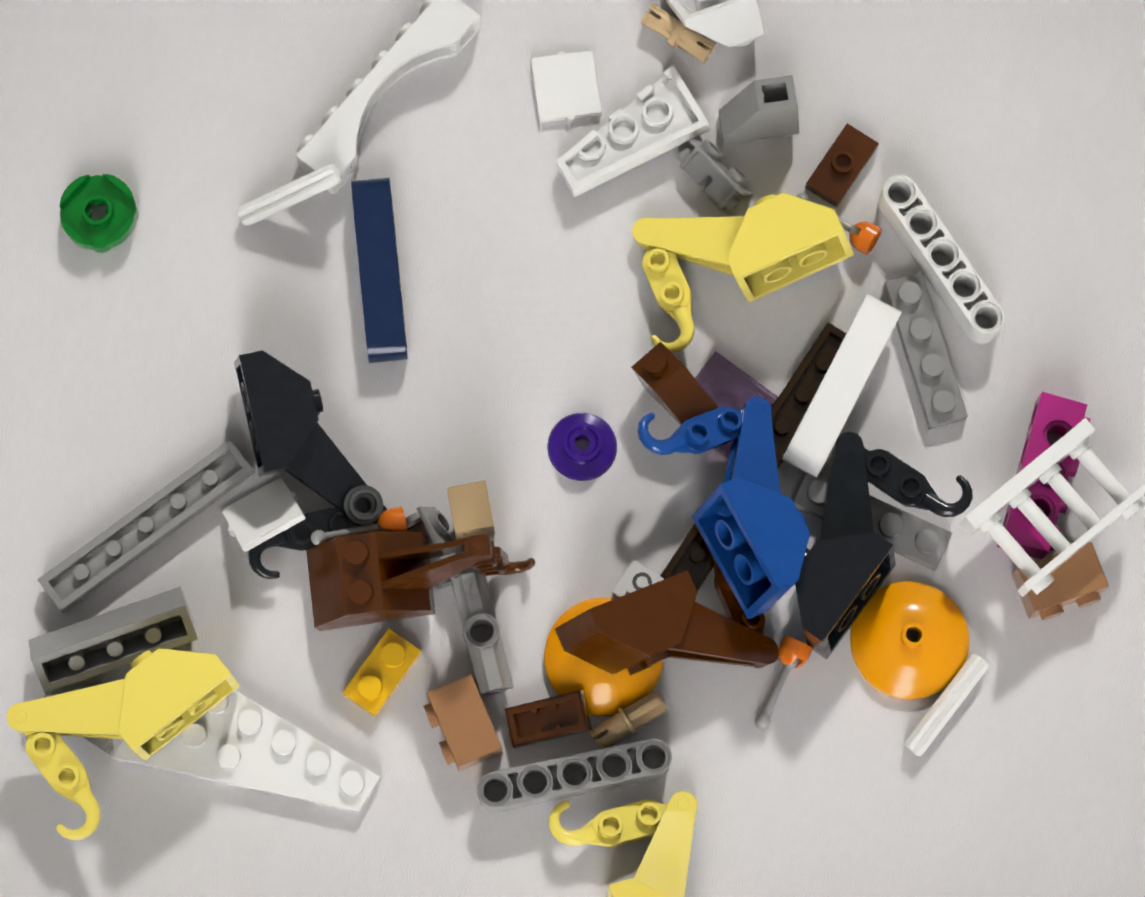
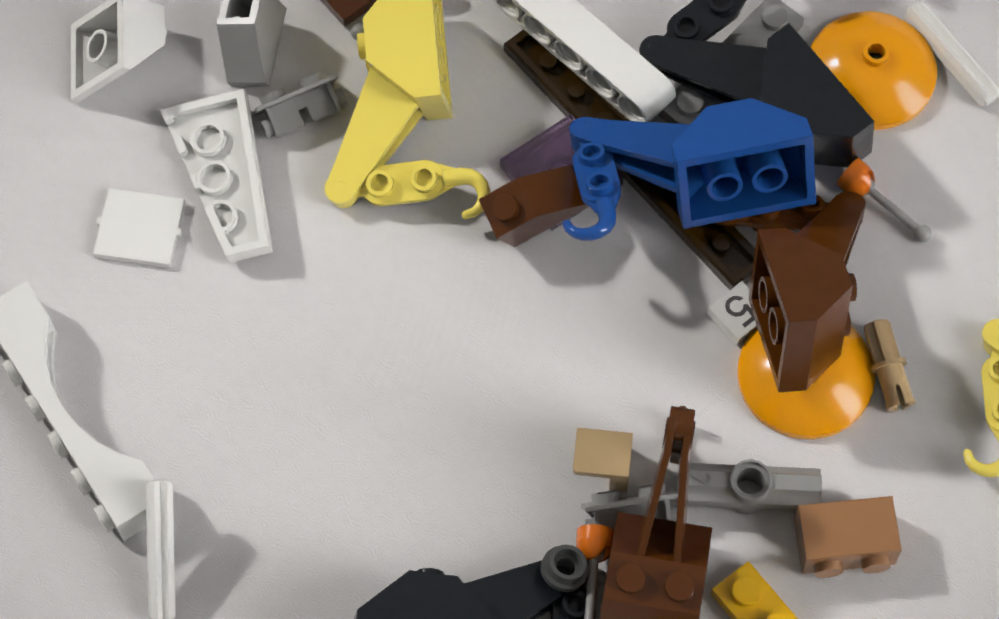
camera: 70 degrees left, 10 degrees down
(379, 270) = (284, 480): dark blue beam -> none
(548, 719) = (865, 446): reddish brown plate -> none
(577, 463) = (559, 346): dark purple piece -> none
(589, 761) = (934, 456): light grey beam -> none
(678, 34) = (125, 94): tan pin -> none

